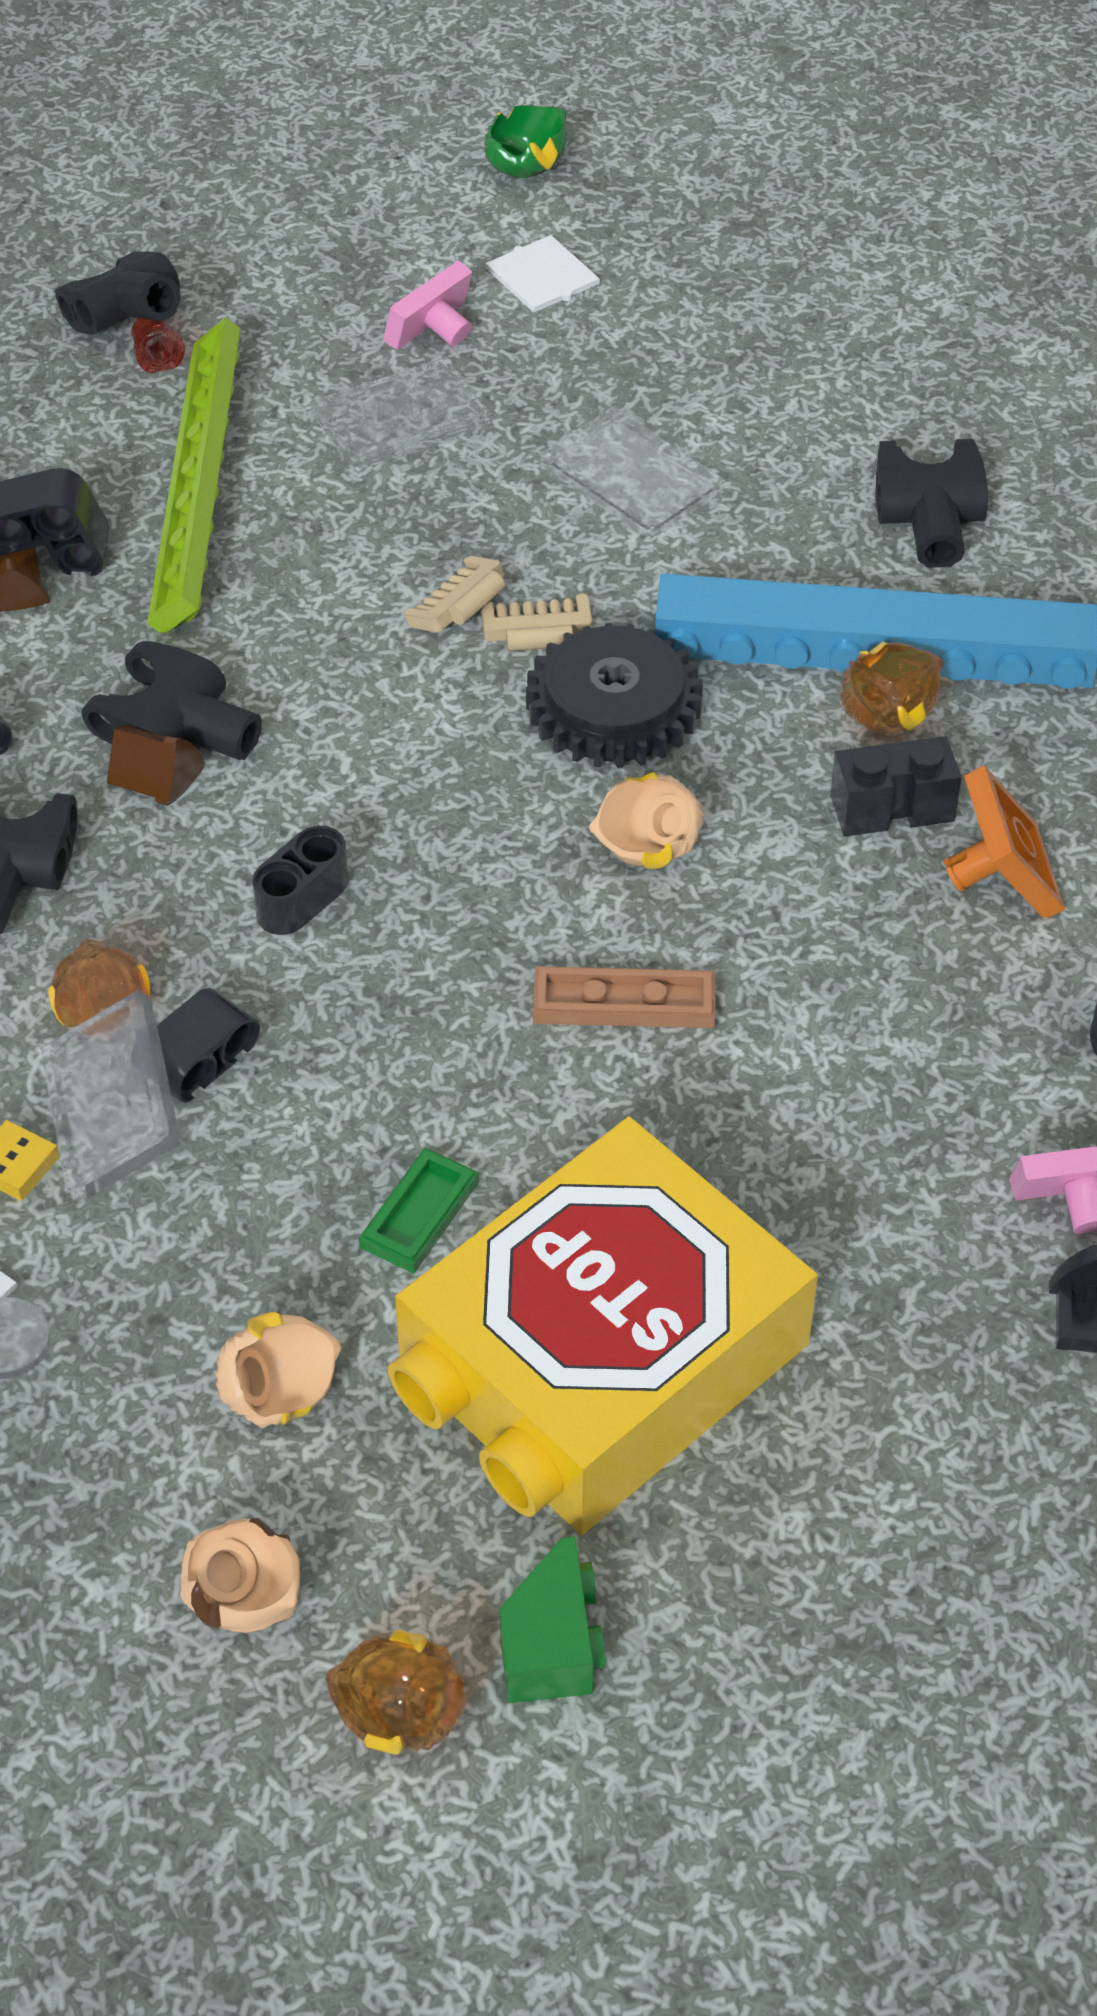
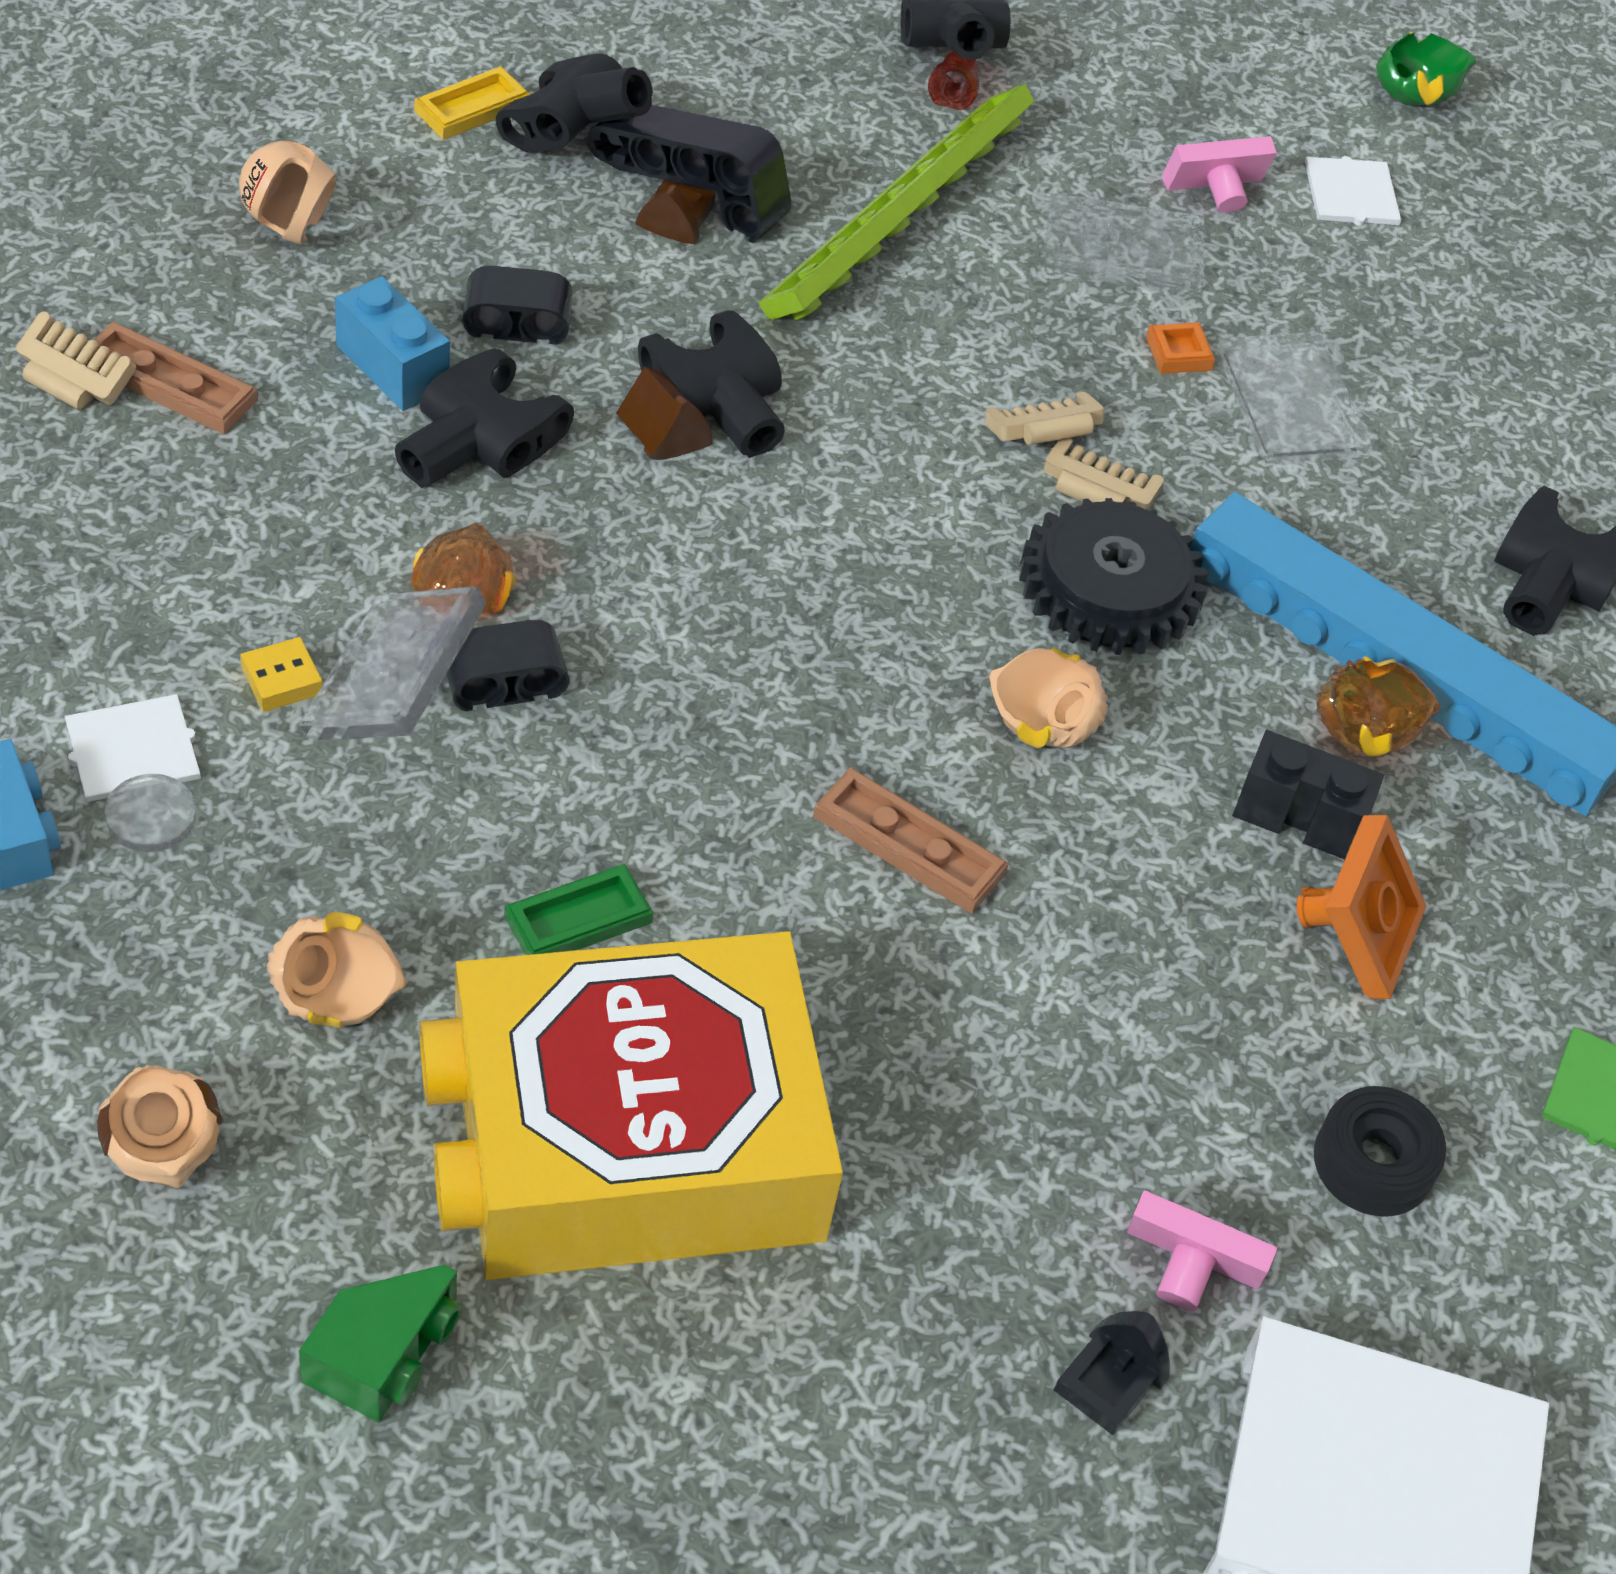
camera: 25 degrees right, 0 degrees up
(300, 880) = (704, 579): black beam -> none
(398, 1692) = (202, 1306): clear orange hair -> none
(513, 478) = (1180, 347): none -> orange tile

